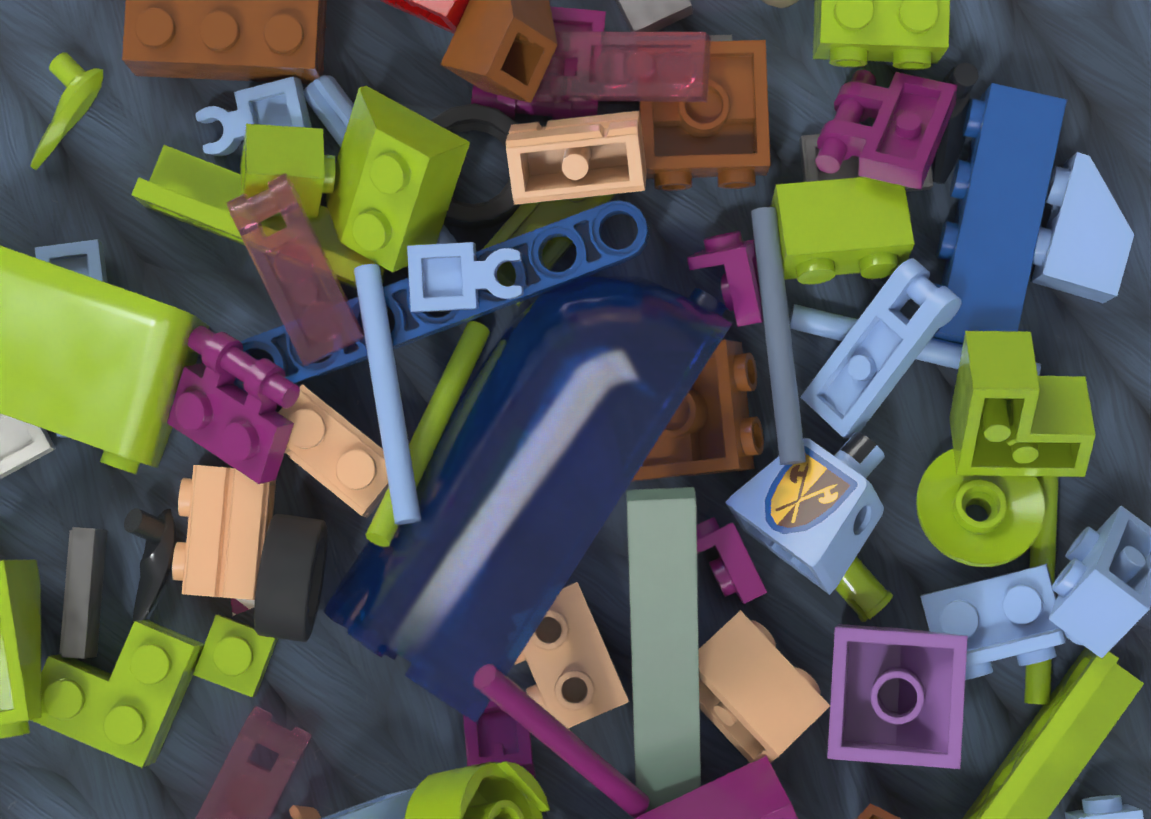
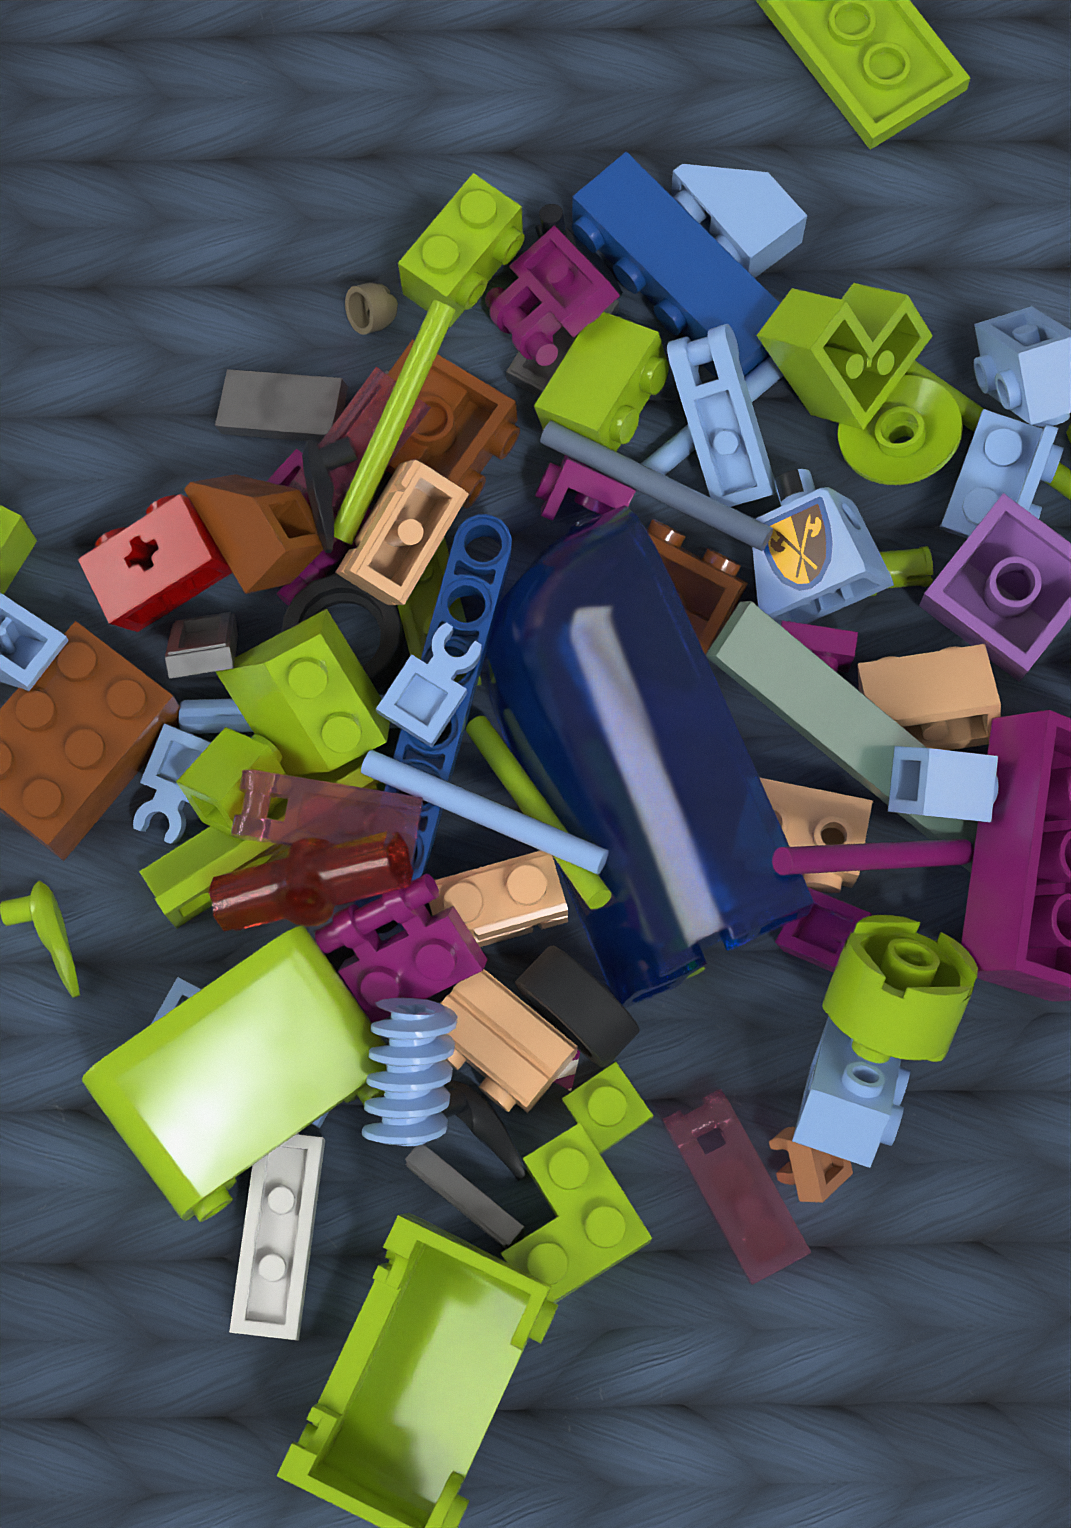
camera: 50 degrees left, 10 degrees down
(138, 483) = (413, 1072): none -> light blue piece
(229, 297) = (311, 881): none -> clear red piece
(377, 59) = (202, 645): none -> flat silver tile
(572, 58) = (320, 485): none -> black bar
(665, 80) = (392, 421): none -> lime bar
(672, 755) = (943, 783): none -> light blue brick

